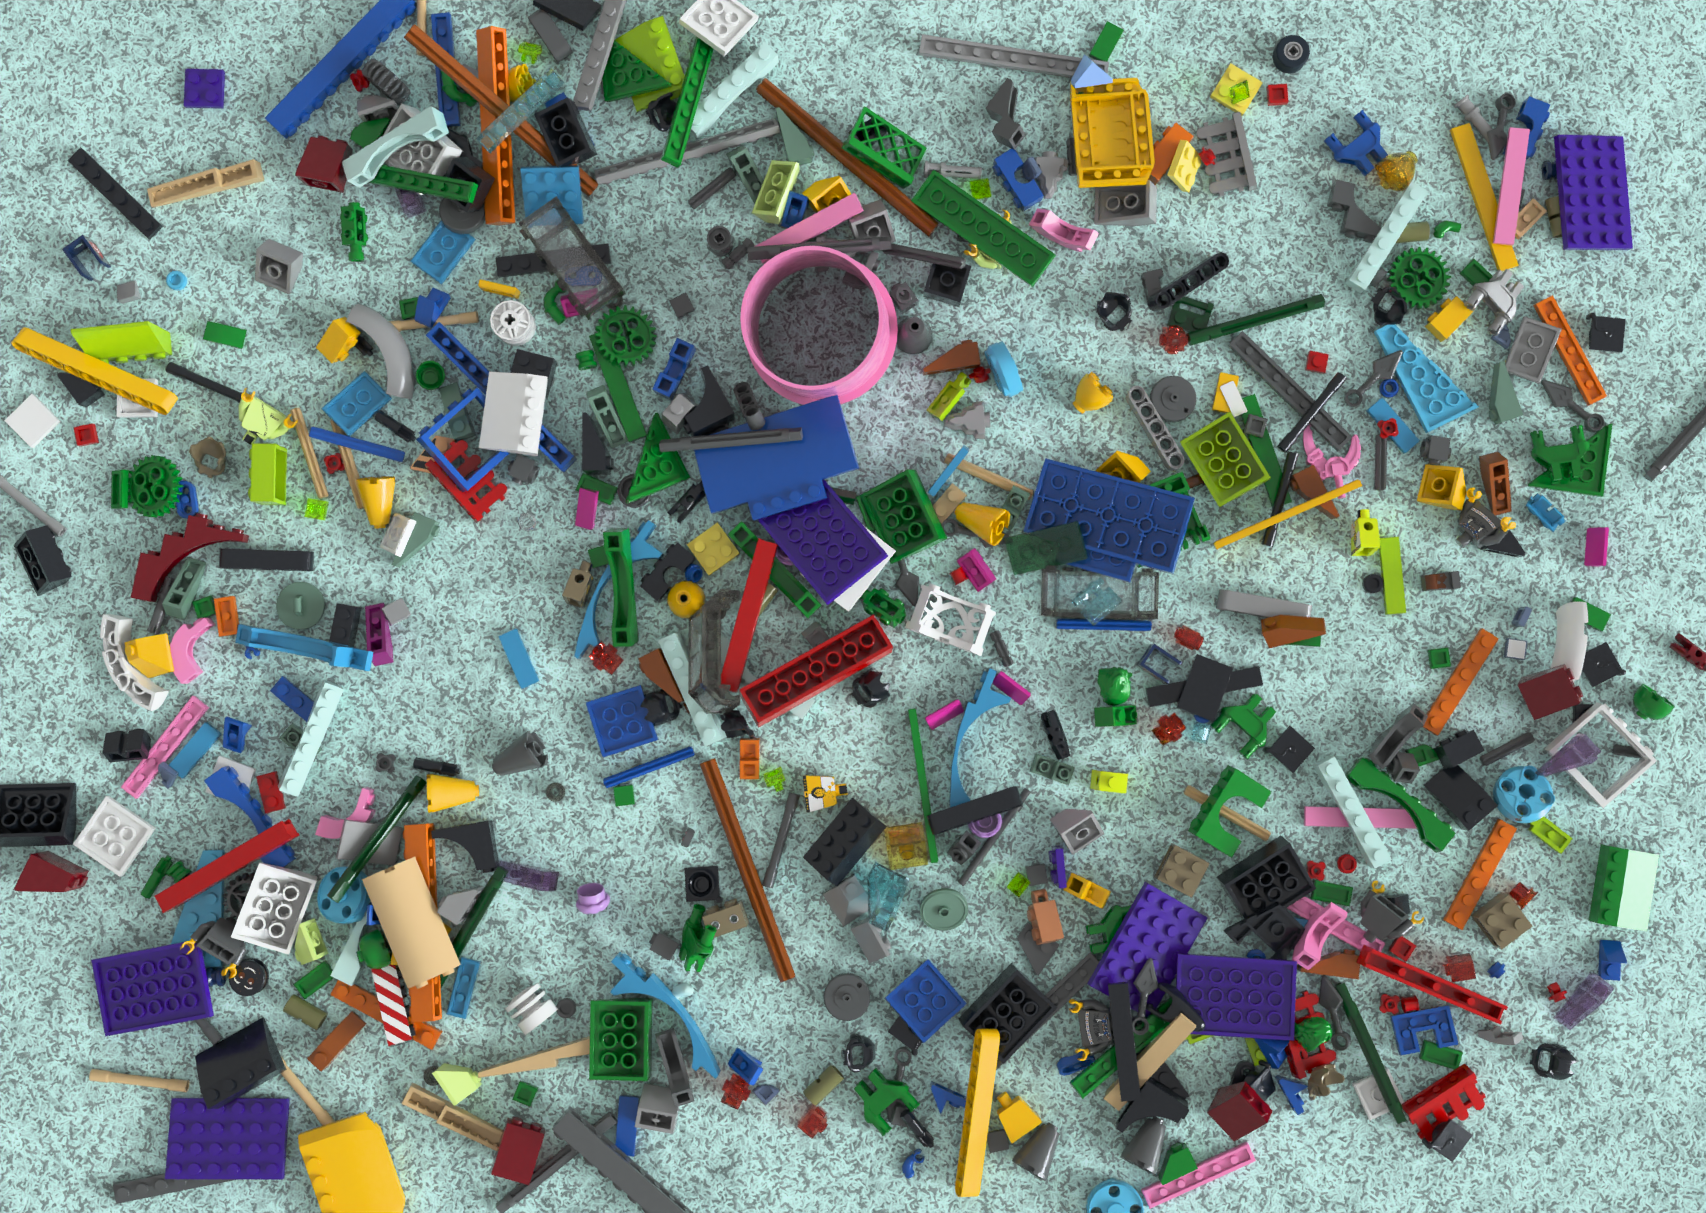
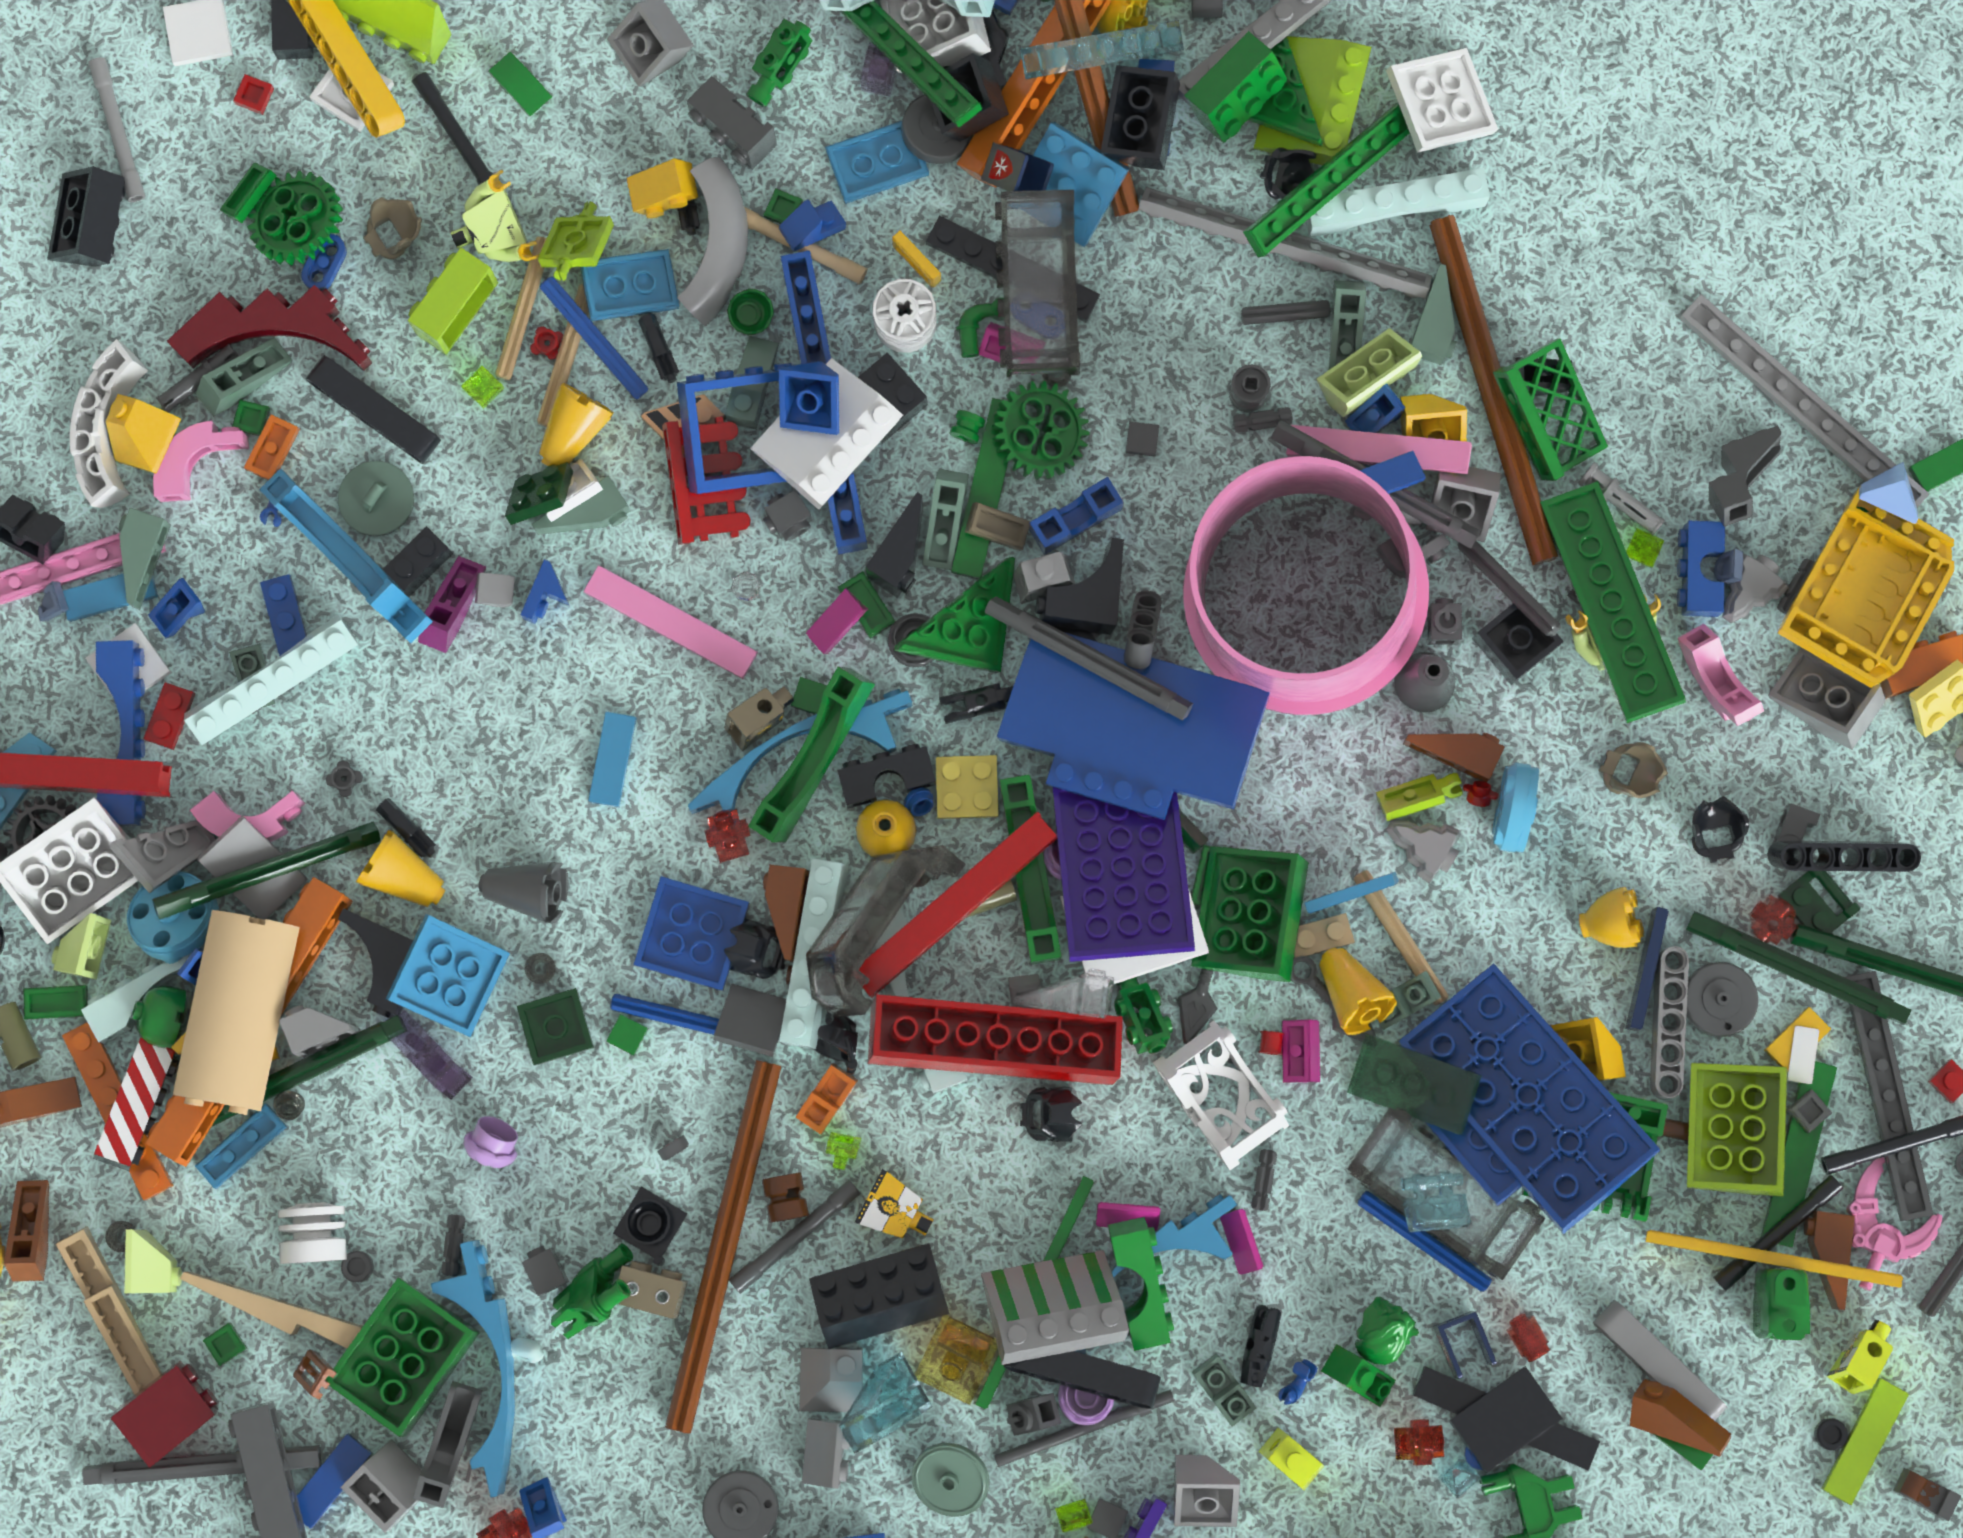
camera: 30 degrees right, 5 degrees down
(193, 714) = (141, 545): none -> sand green slope
(312, 399) = (576, 241): none -> lime plate
(316, 867) = (162, 854): none -> light grey wing
(351, 281) = (731, 123): none -> dark grey wedge
(383, 1106) = (28, 1232): none -> dark orange slope
(384, 545) = (539, 493): none -> dark green plate
(421, 592) = (545, 586): none -> blue slope
(473, 950) = (288, 1105): none -> clear smoke plate
(491, 400) = (809, 398): none -> blue slope
(500, 566) = (670, 622): none -> bright pink tile
(509, 828) = (447, 975): none -> dark azure plate
(519, 206) = (1016, 170): none -> piece
(581, 1074) = (320, 1377): none -> dark orange tile
(584, 816) = (555, 1026): none -> dark green plate
(605, 84) = (1236, 87): none -> green brick
(607, 964) = (452, 1247): none -> dark grey axle
(637, 402) = (997, 526): none -> dark tan tile
(683, 745) = (751, 1020): none -> dark grey tile
(762, 824) = (785, 1197): none -> reddish brown wheel
(826, 234) = (1396, 472): none -> blue tile
(844, 617) = (1080, 994): none -> clear slope
(938, 787) = (1054, 1307): none -> light grey slope
(989, 760) = (1146, 1317): none -> green arch
(1059, 308) = (1645, 776): none -> dark tan helmet
(1087, 733) = (1305, 1372): none -> blue arm
(1125, 408) = (1647, 969): none -> dark blue tile
(1202, 356) = (1797, 968): none -> dark green piece
(1303, 534) = (1781, 1304): none -> green piece

